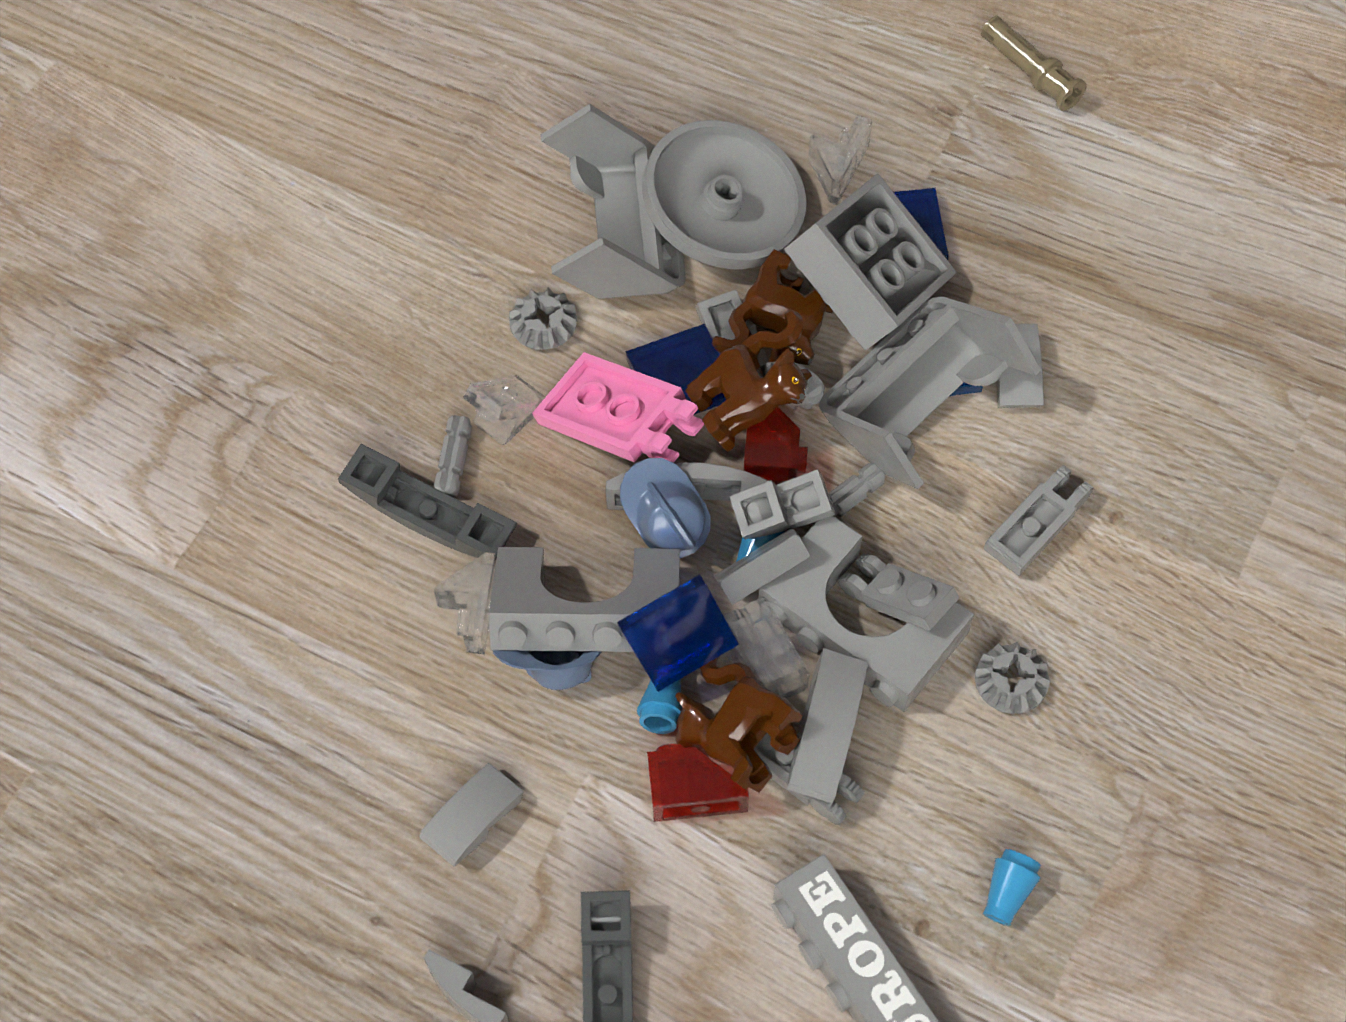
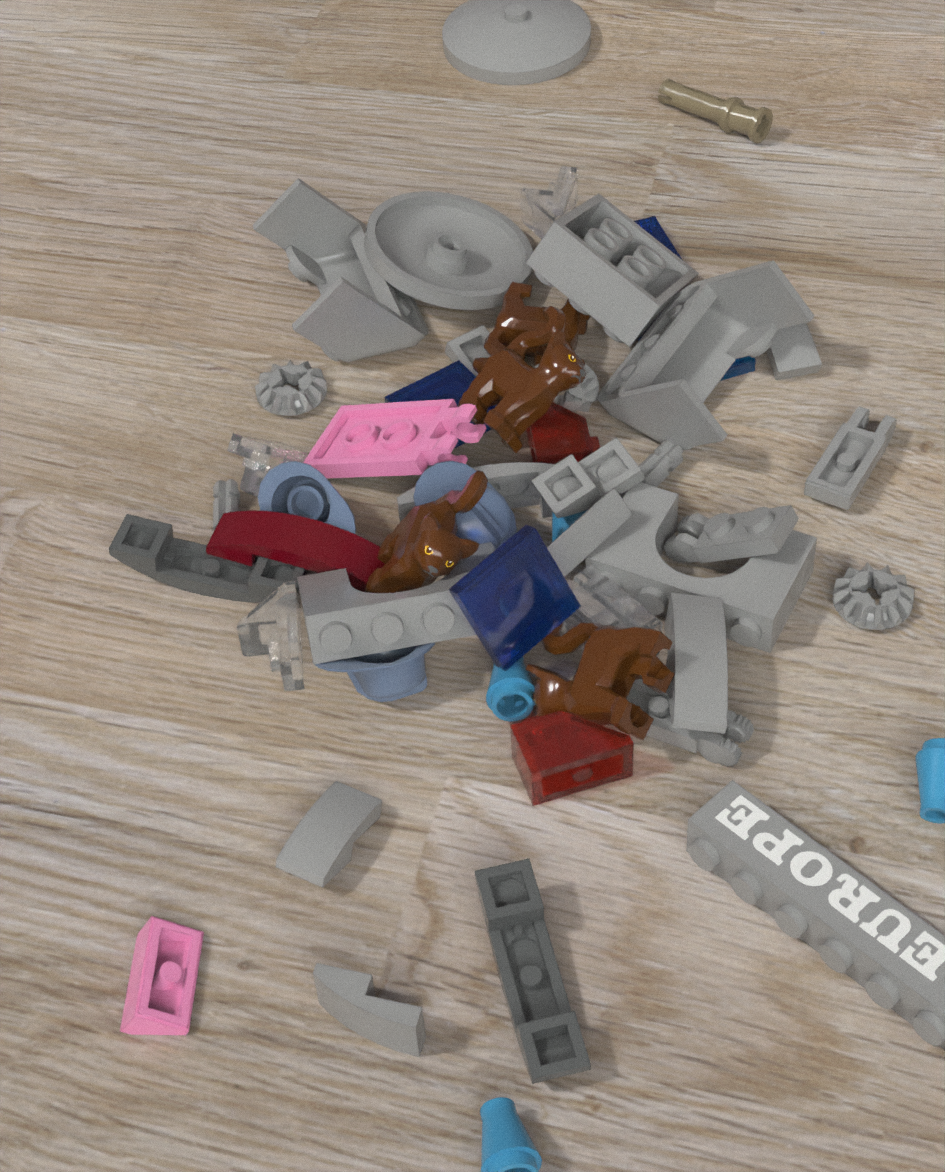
camera: 10 degrees left, 15 degrees down
(304, 920) = (162, 979): none -> bright pink slope
(517, 514) = (295, 542): none -> dark red slope
(524, 475) = (304, 492): none -> sand blue piece
(614, 547) = (427, 541): none -> reddish brown animal

